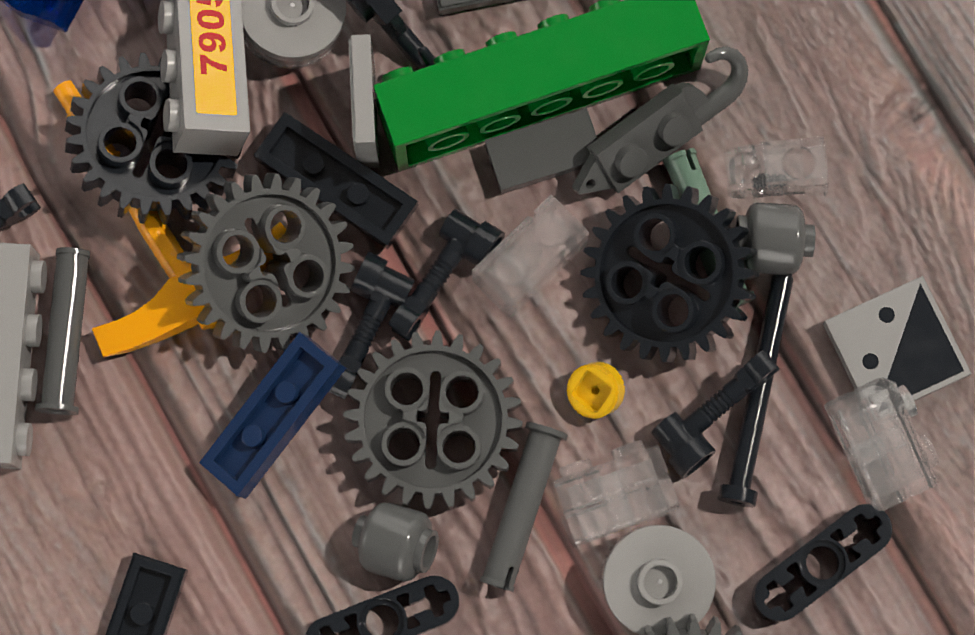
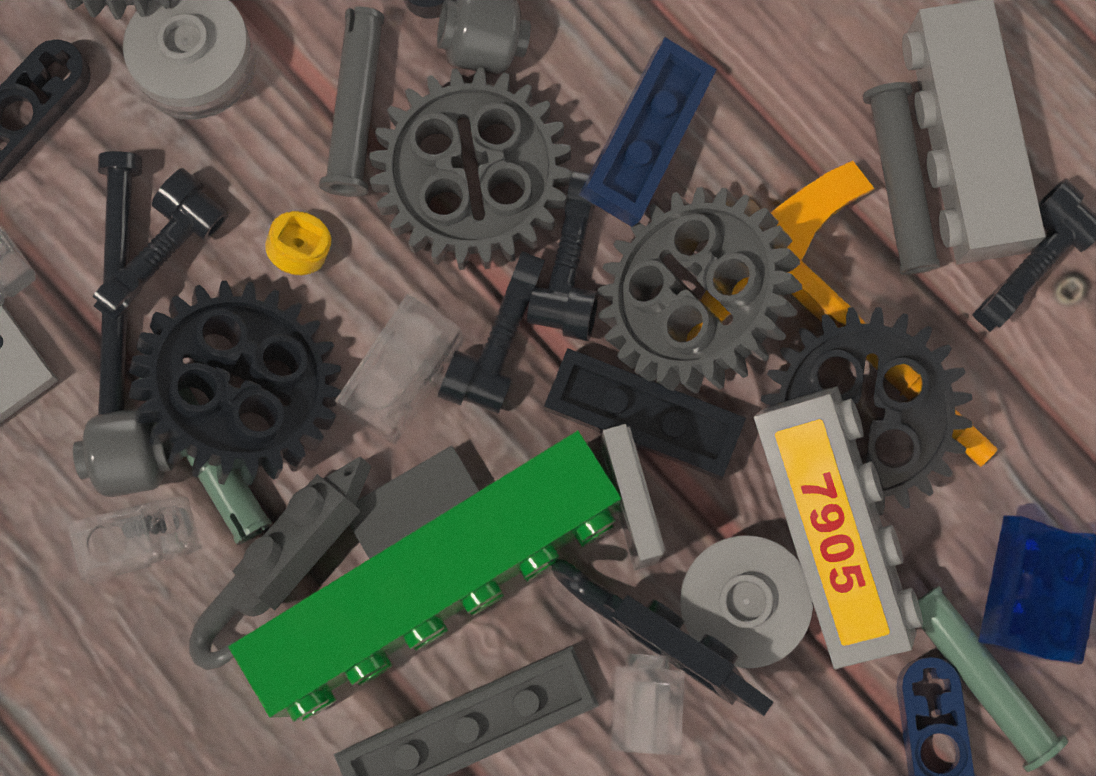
camera: 170 degrees right, 0 degrees up
(615, 493) = (254, 132): clear brick -> none

